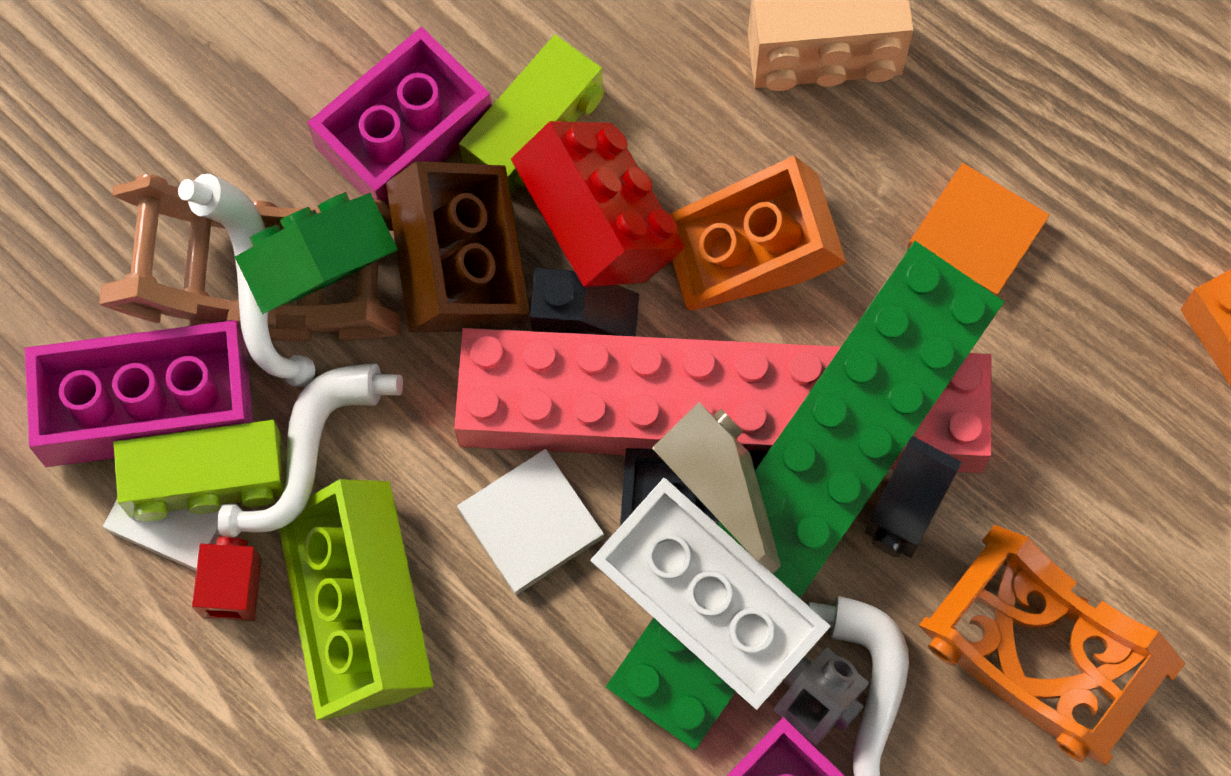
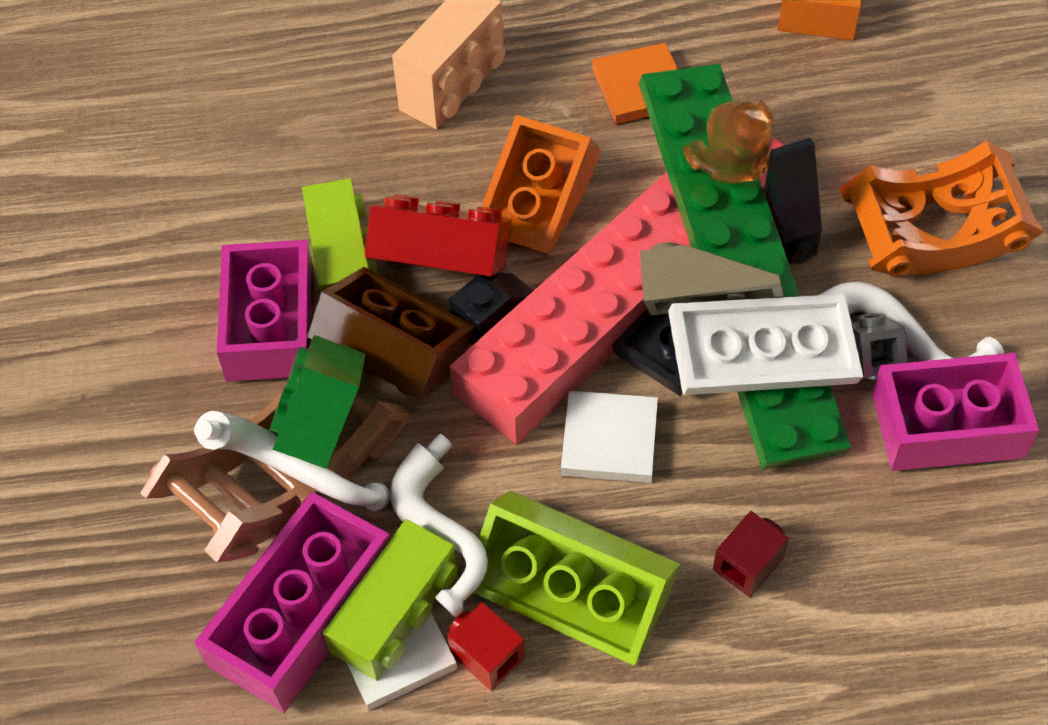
camera: 50 degrees left, 15 degrees down
(501, 740) = (750, 553): none -> dark red brick
(900, 393) = (738, 143): none -> clear orange helmet

